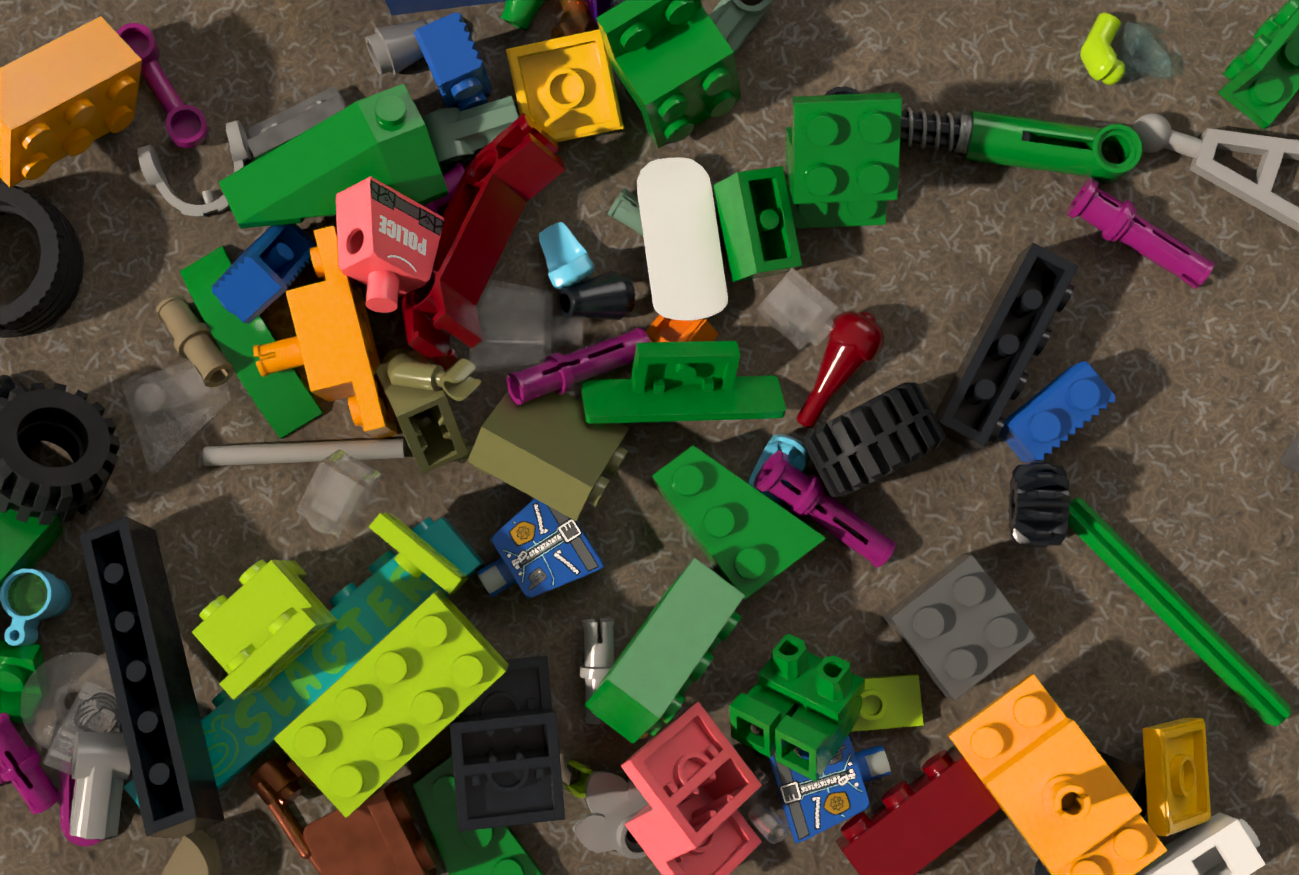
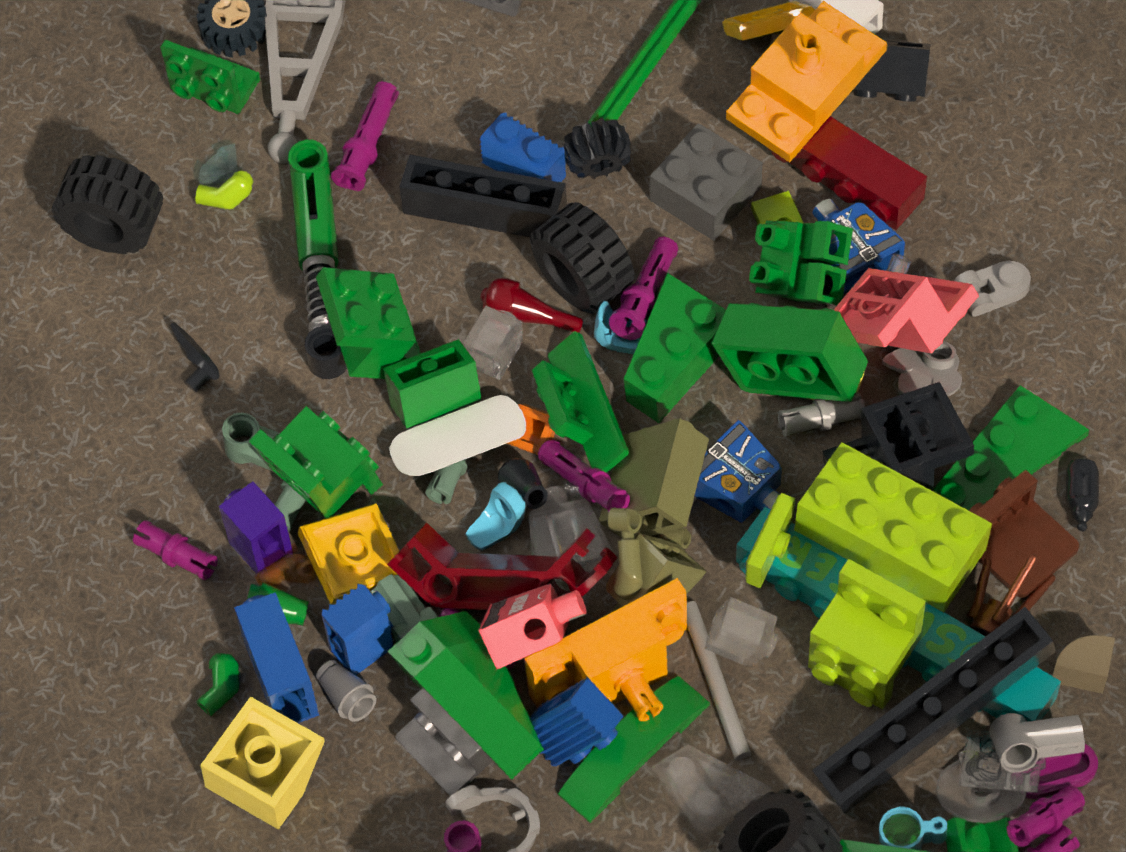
camera: 100 degrees left, 25 degrees down
(194, 341) = (647, 779): dark tan pin -> none

